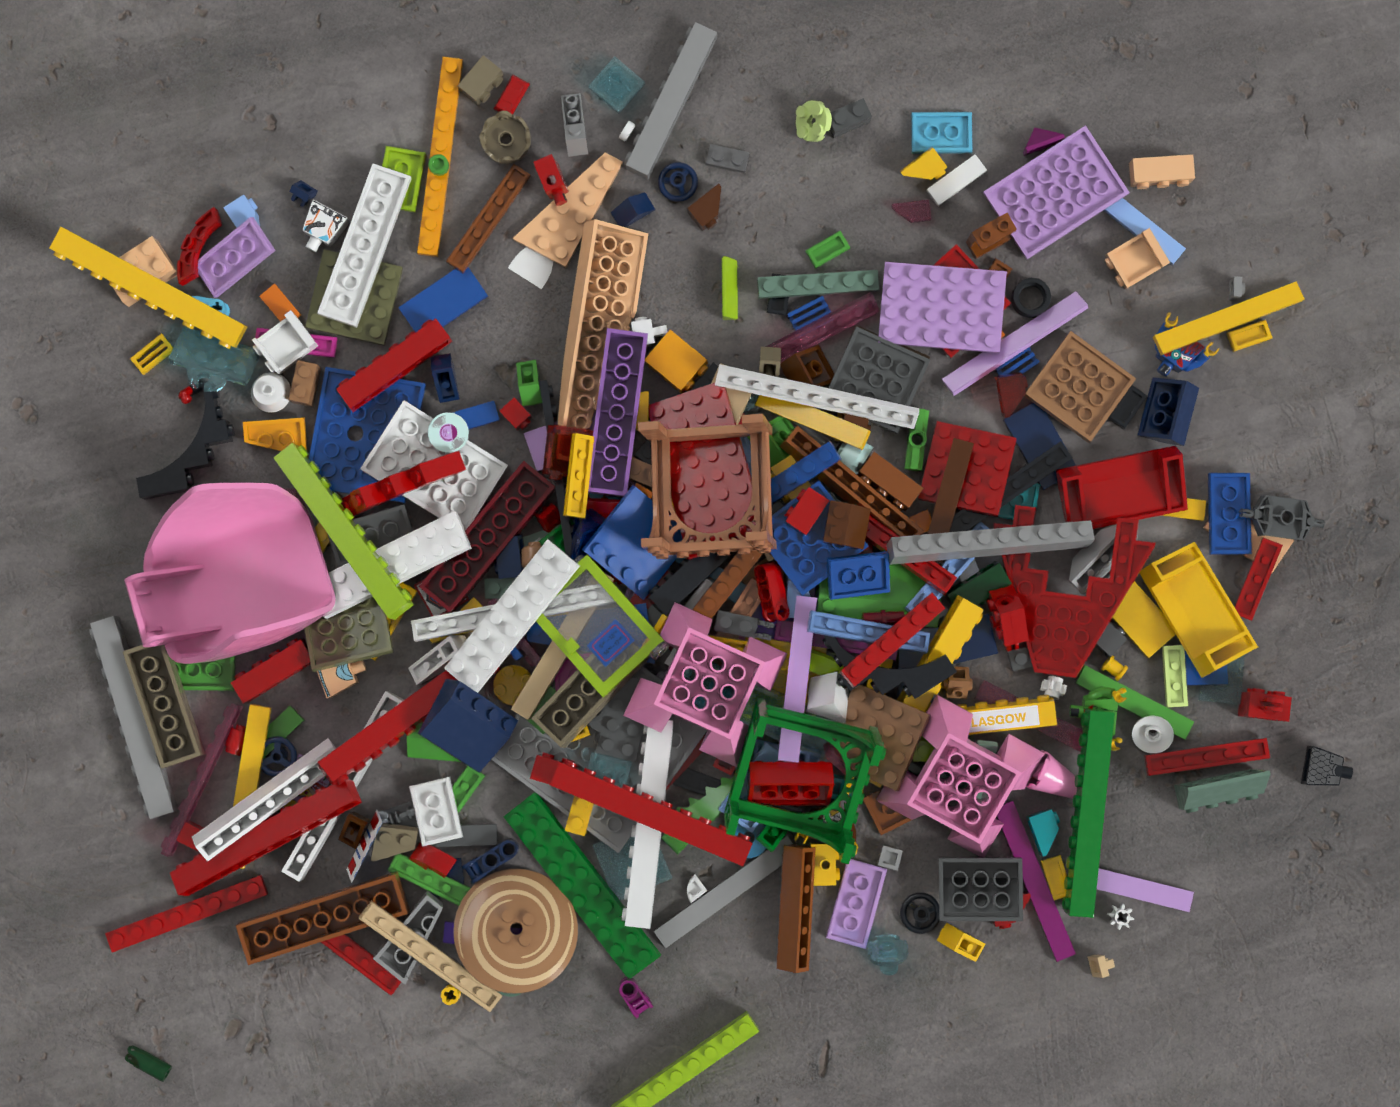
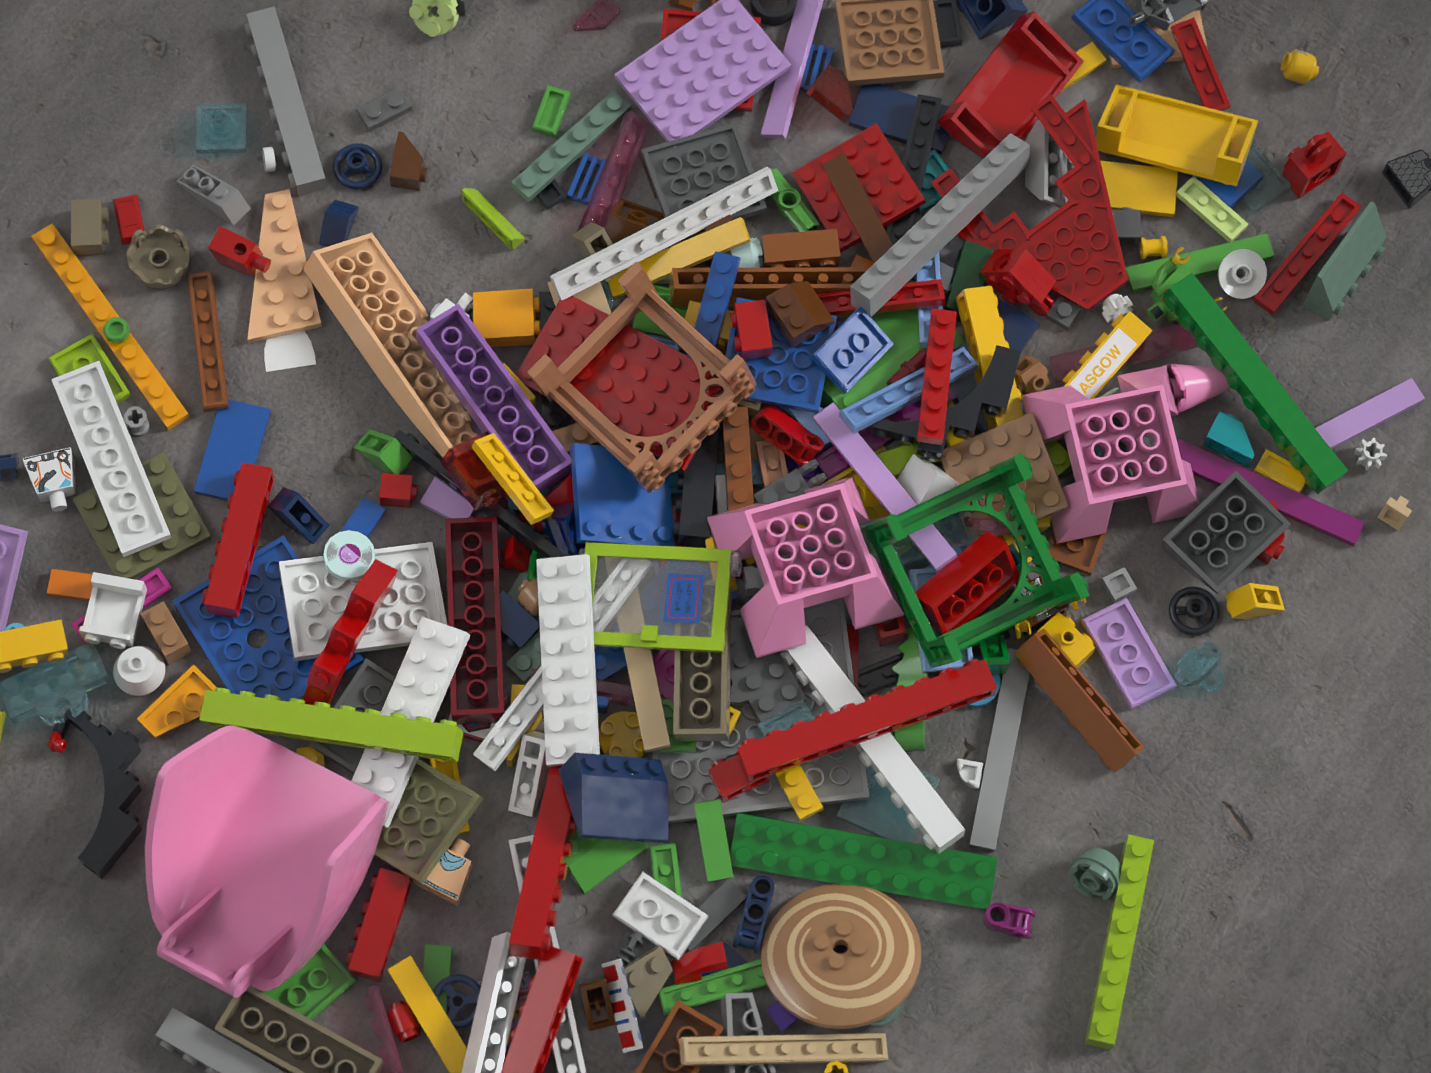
camera: 45 degrees left, 15 degrees down
(401, 227) = (136, 413): none -> light grey bush
(507, 795) = (713, 840): none -> bright green tile
(709, 1017) = (1095, 873): none -> sand green cone
(1321, 633) = (1299, 66): none -> yellow head

